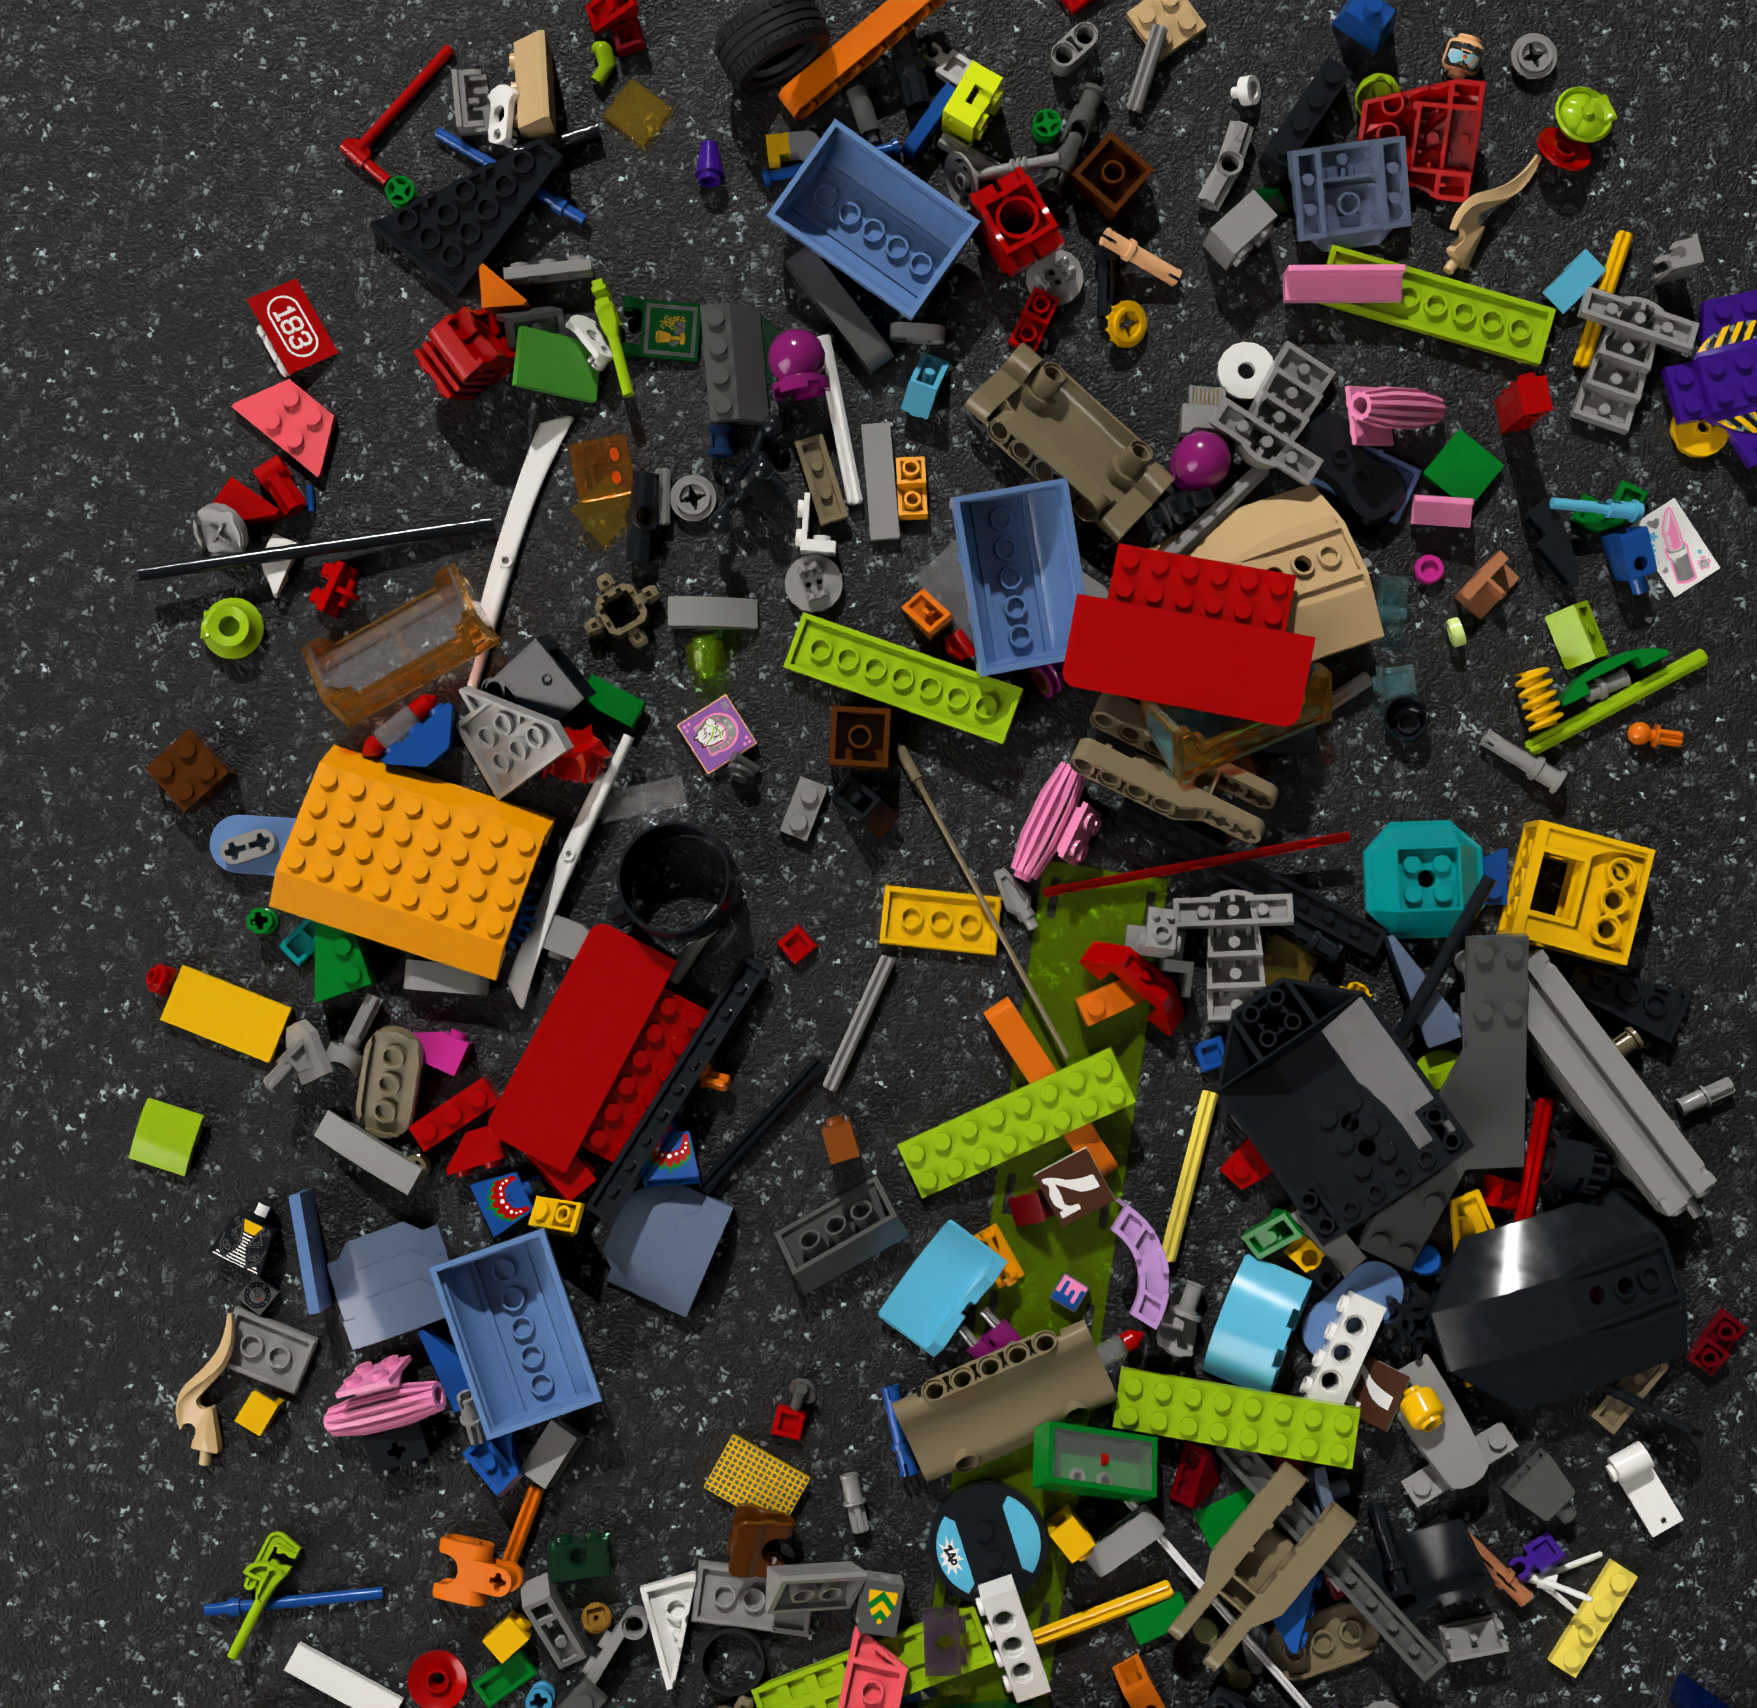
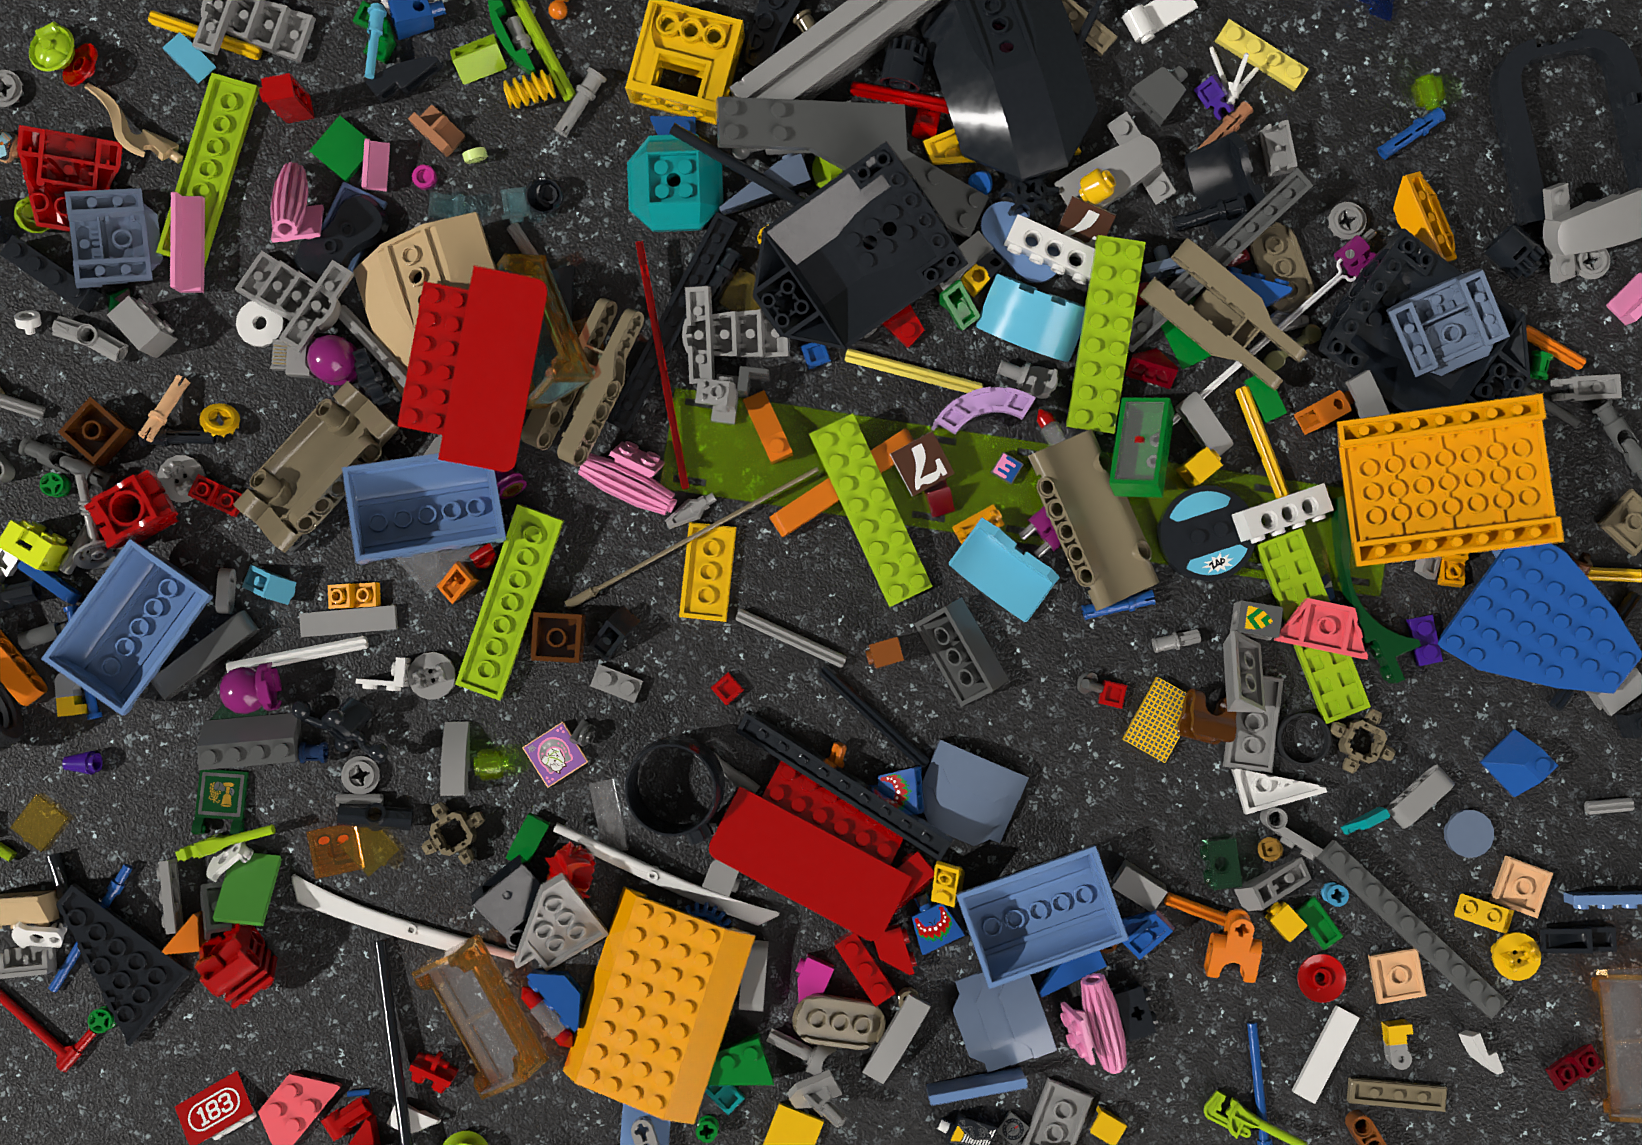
camera: 85 degrees left, 0 degrees up
(470, 1418) = (1110, 953): light grey axle -> none
(821, 480) = (346, 669): dark tan plate -> none
(940, 1659) = (1300, 568): brick -> none
(1141, 976) = (752, 409): red slope -> none

